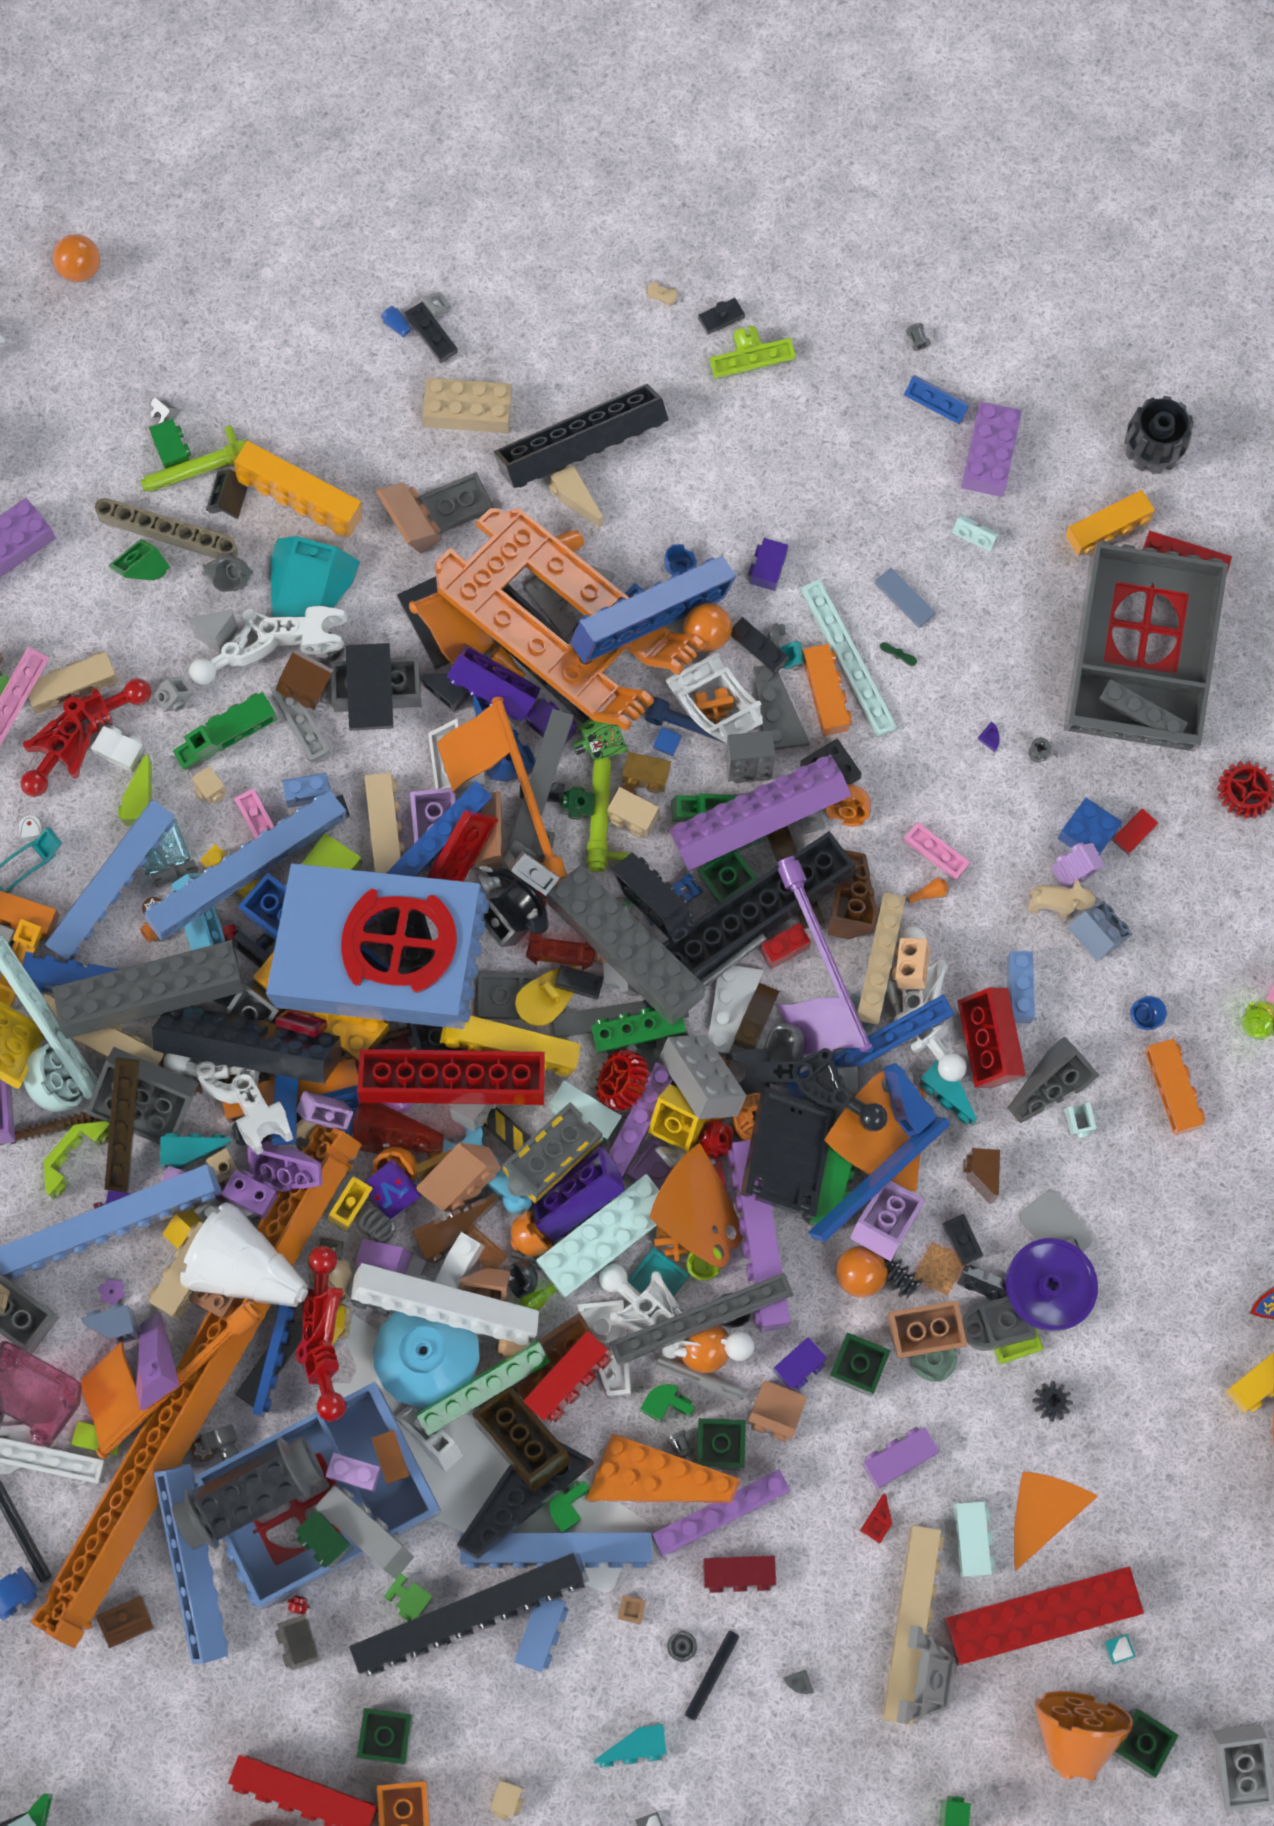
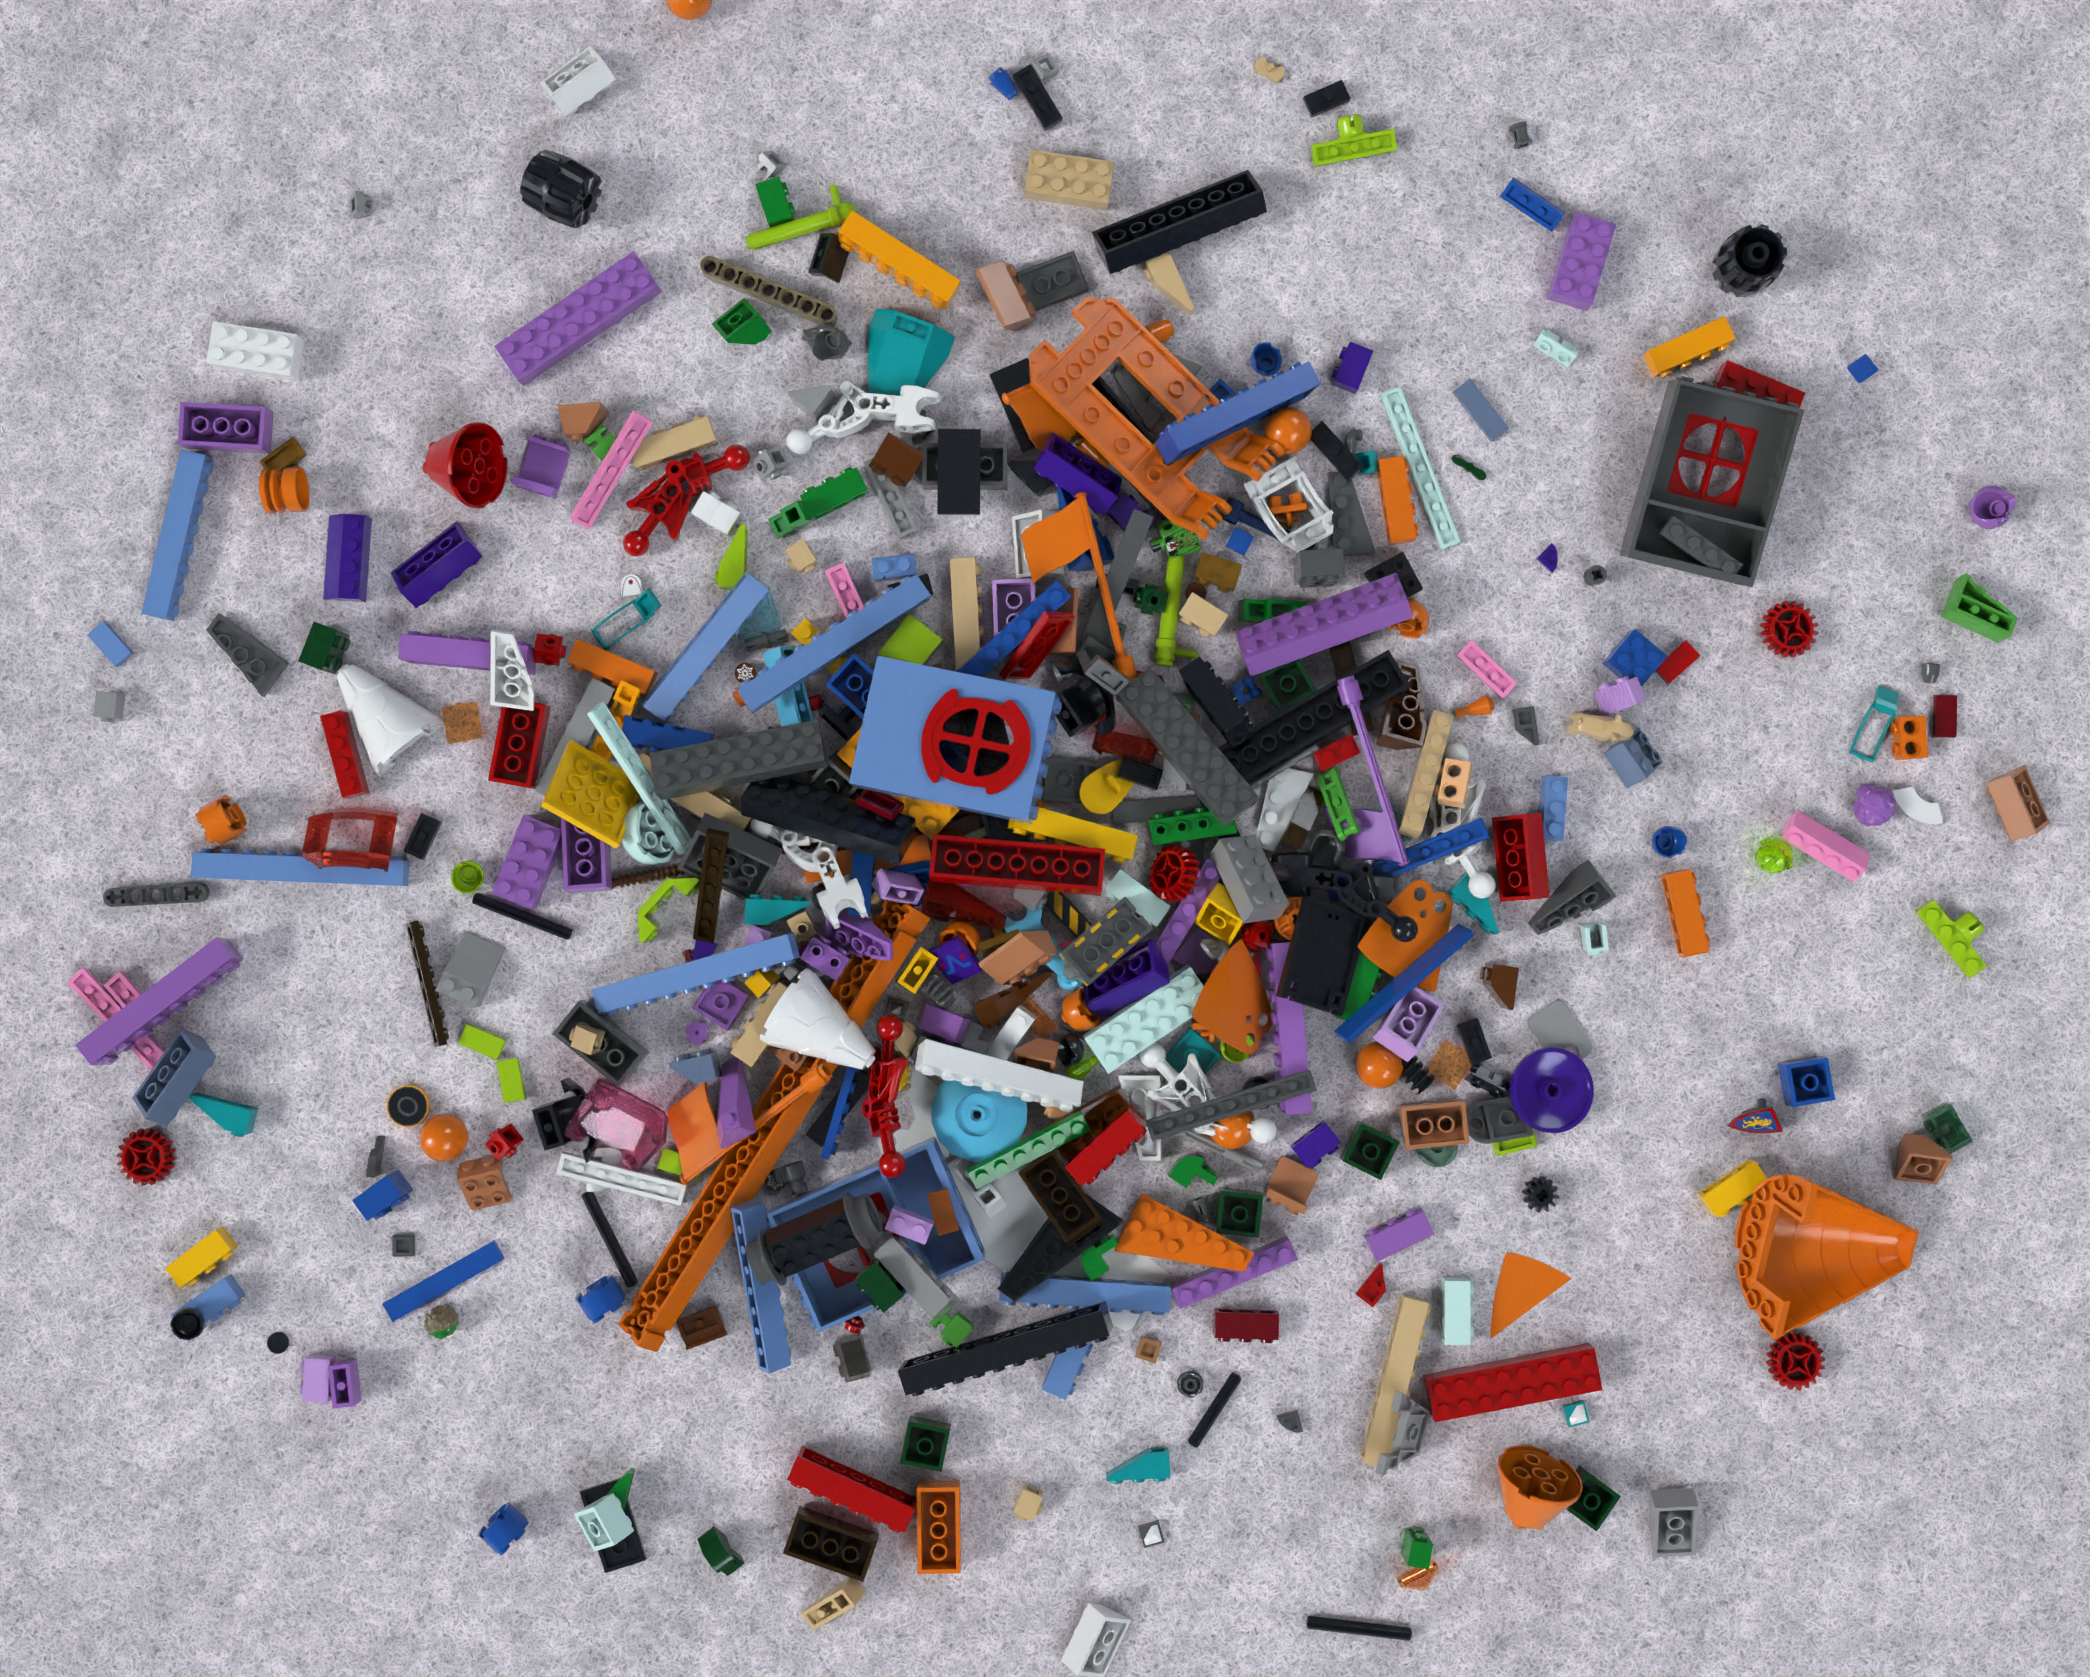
camera: 10 degrees right, 15 degrees up
(138, 1256) = (722, 1003): none -> medium lavender tile
(792, 995) = (1338, 803): none -> bright green plate
(908, 1105) = (1436, 914): blue slope -> none
(984, 904) = (1526, 724): none -> dark grey tile

